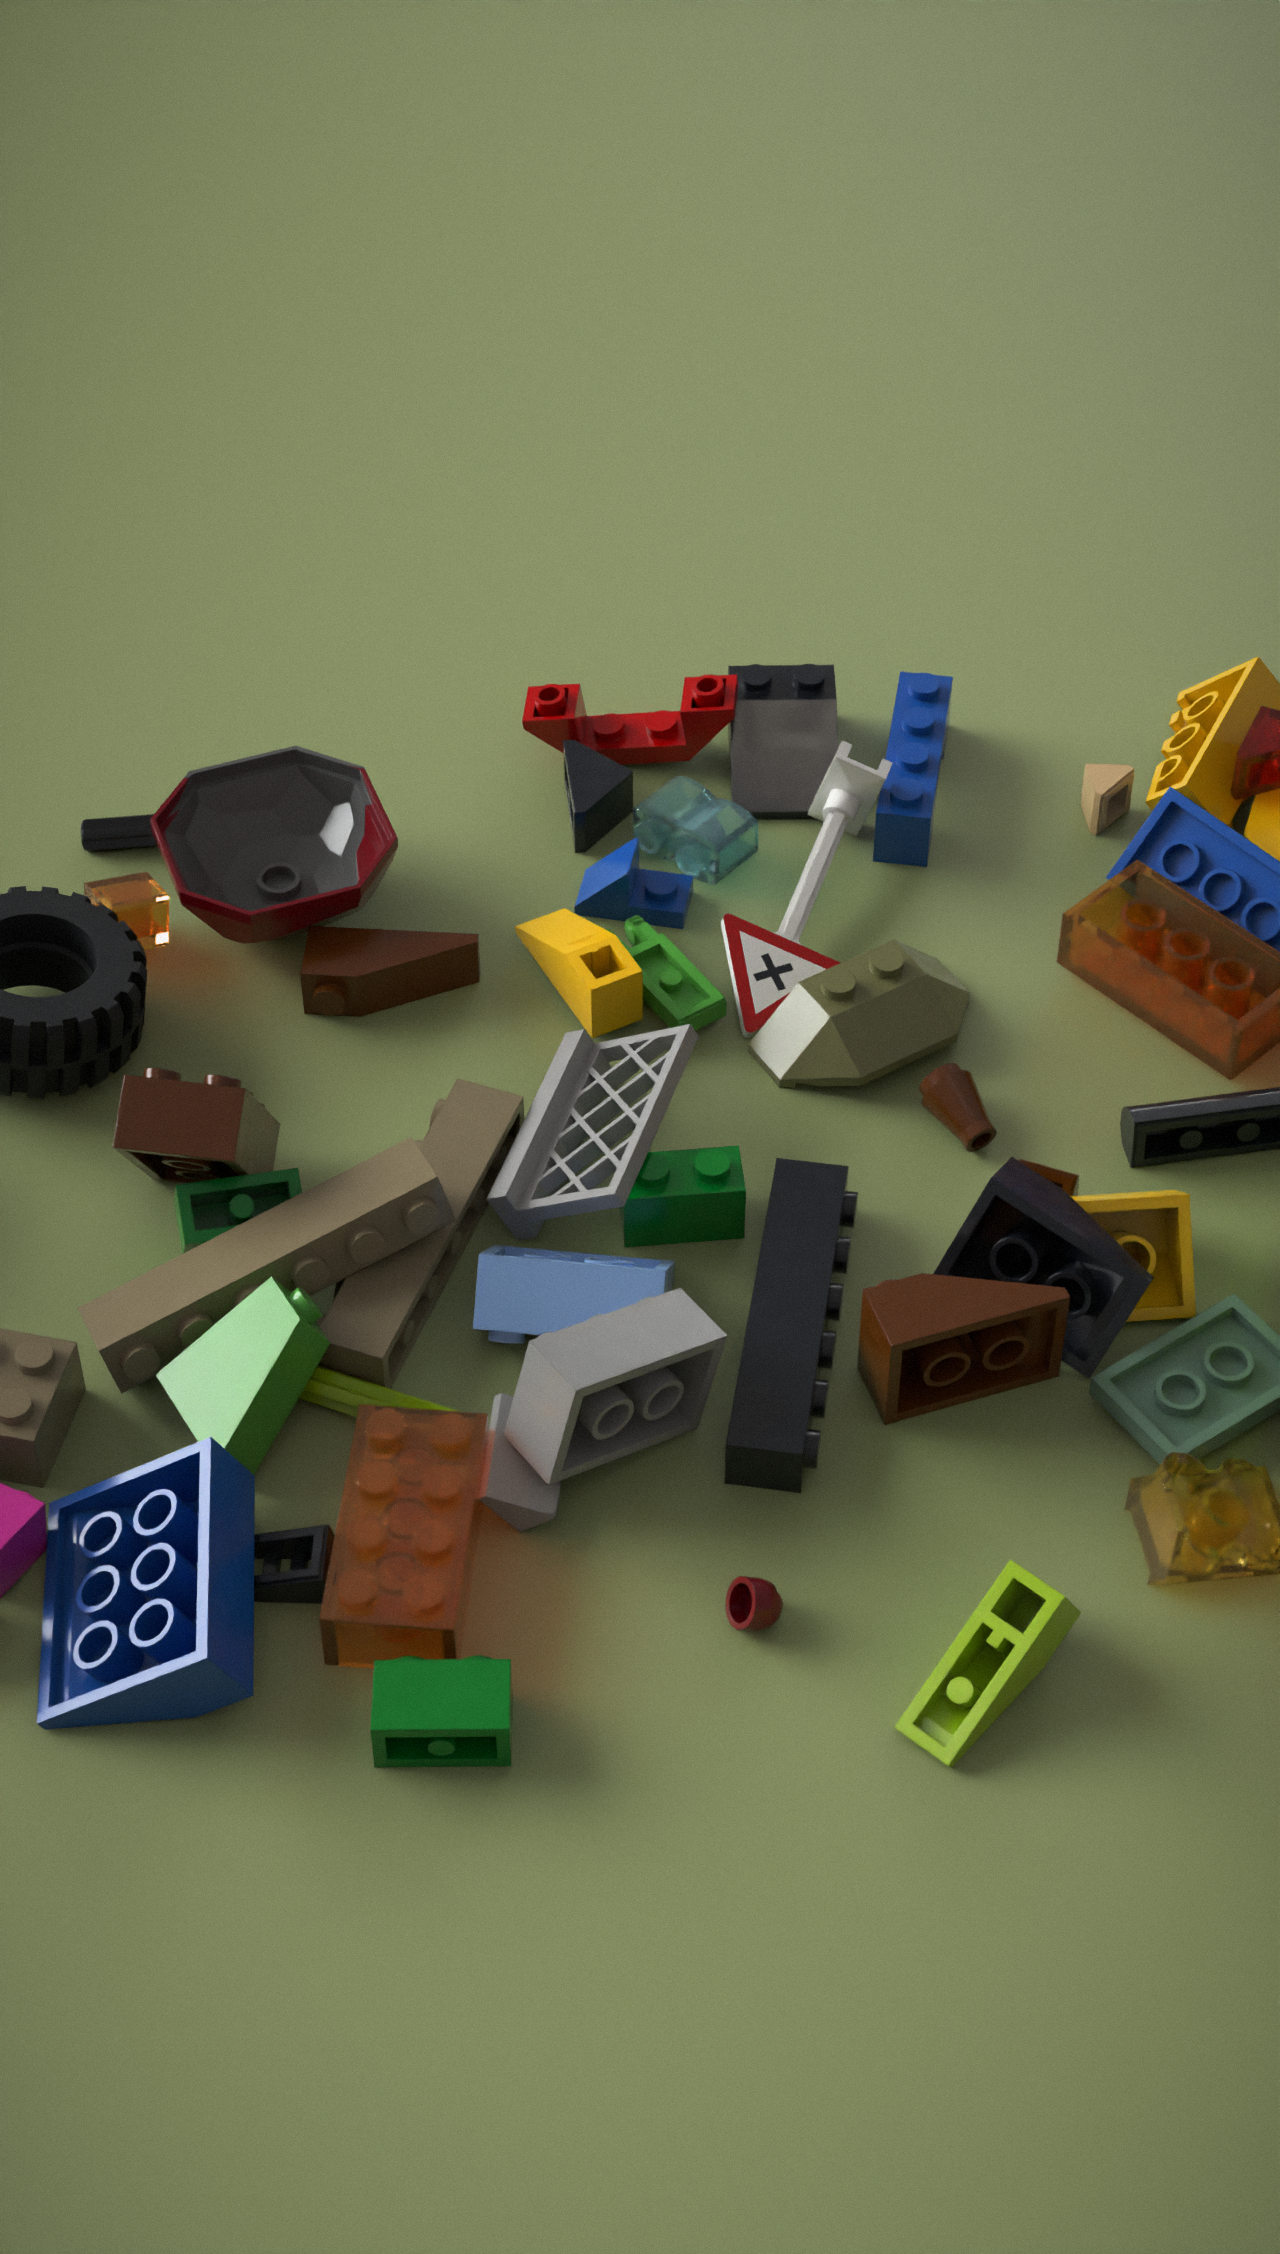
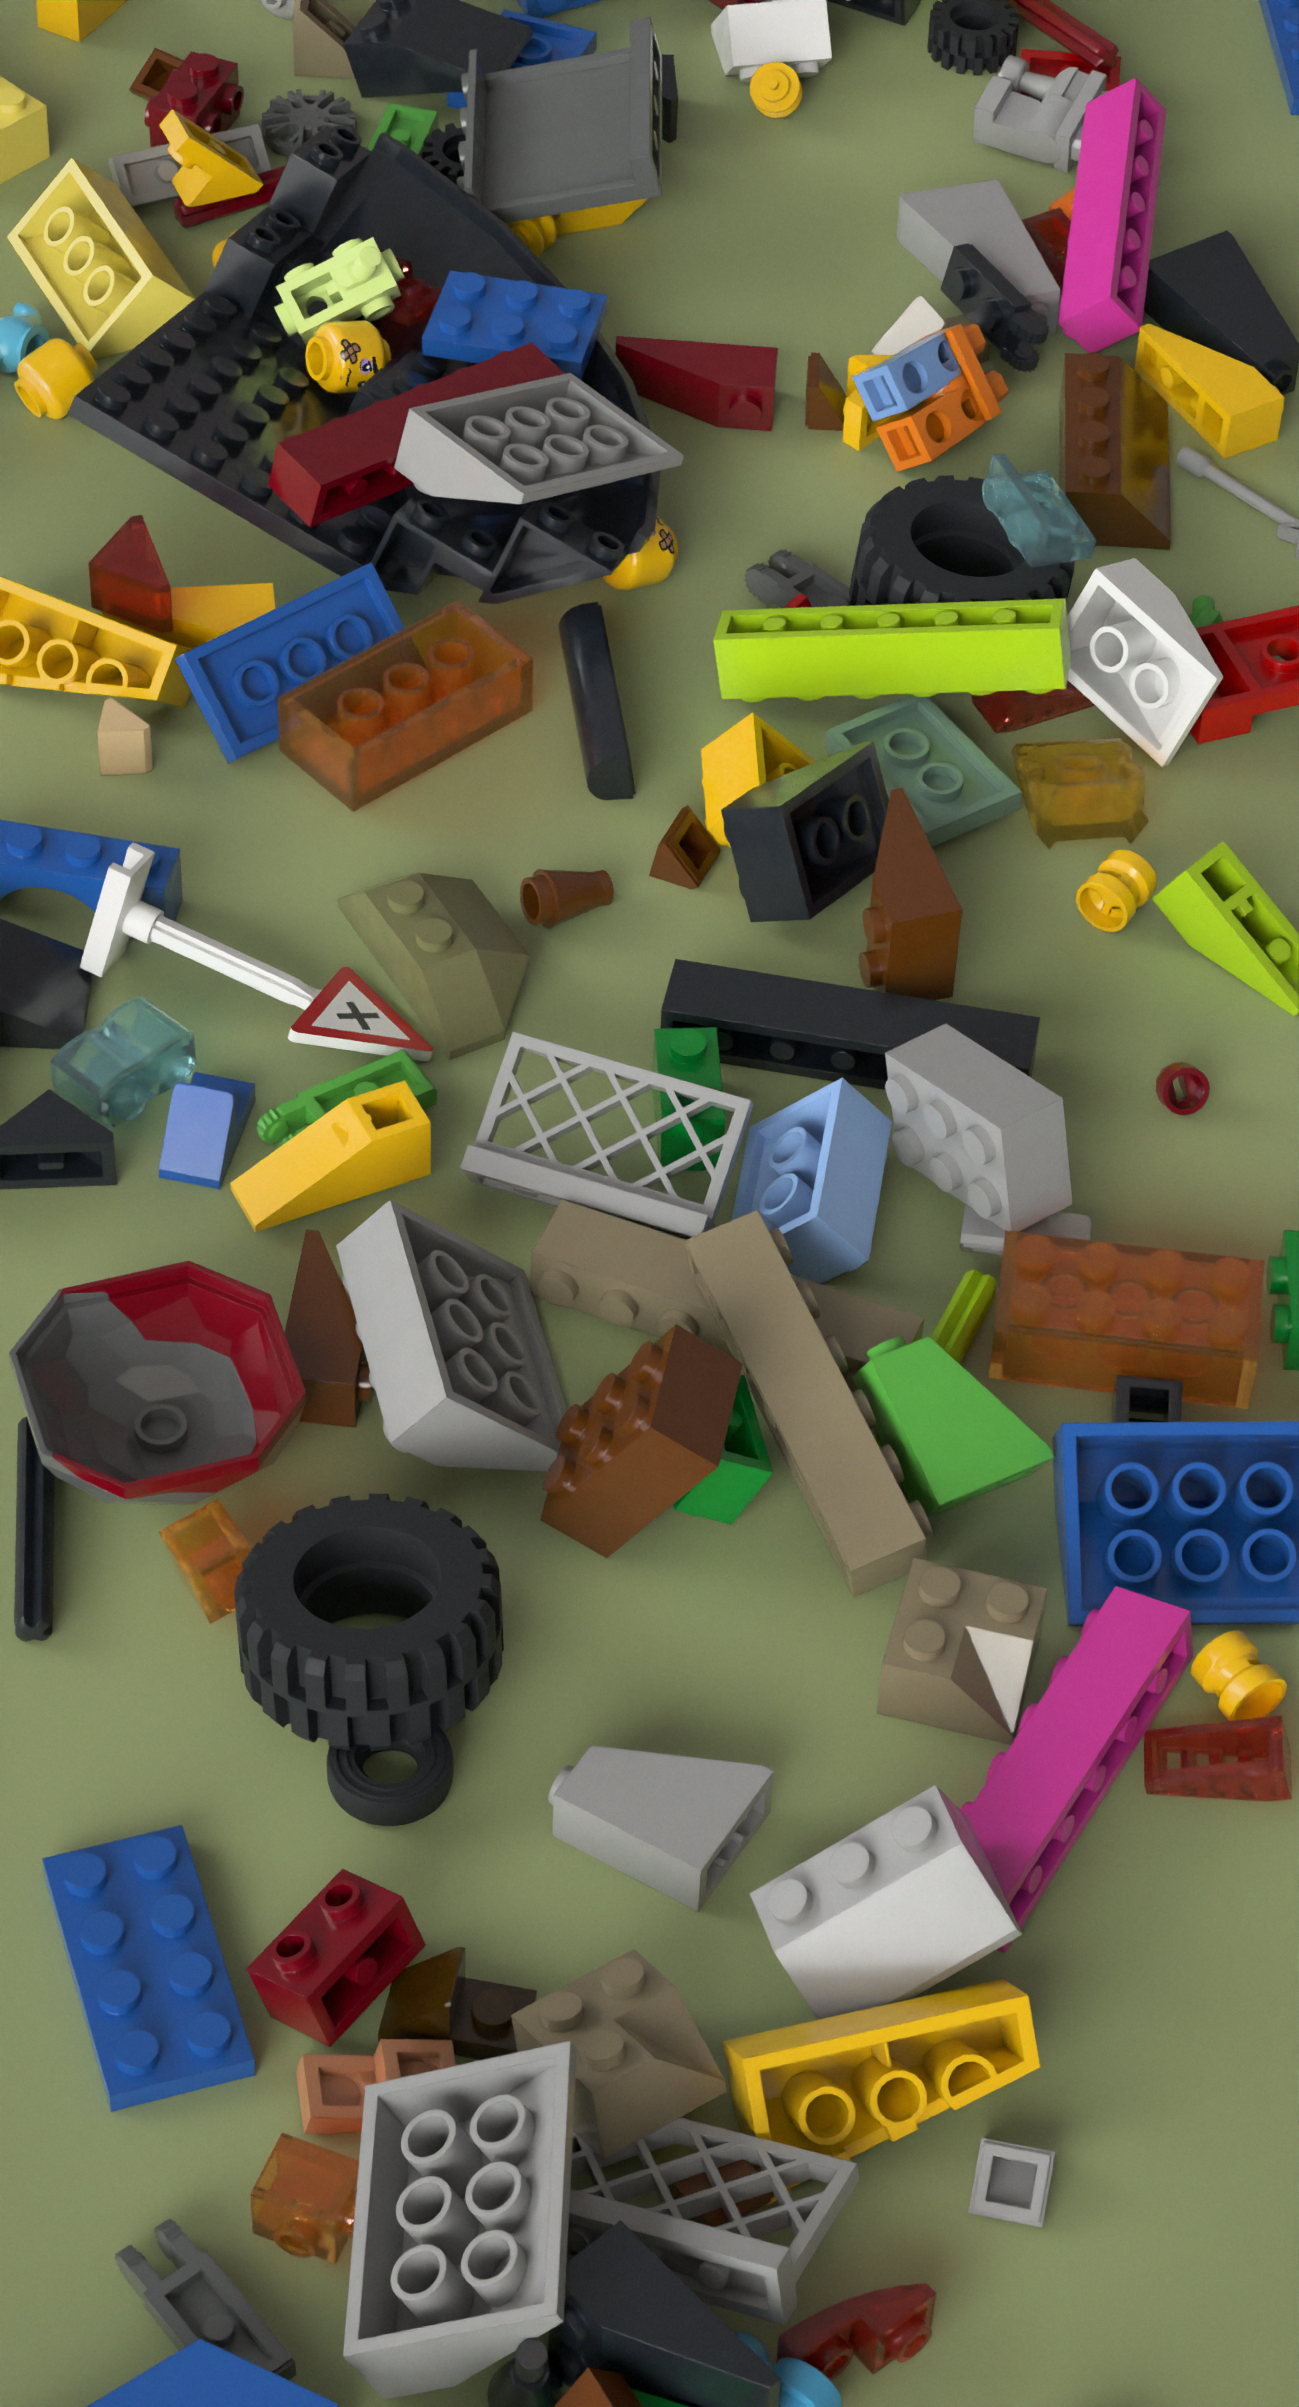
camera: 90 degrees left, 0 degrees up
(348, 1040) = (451, 1345): none -> light grey slope
(1039, 1547) = (1121, 882): none -> yellow wheel

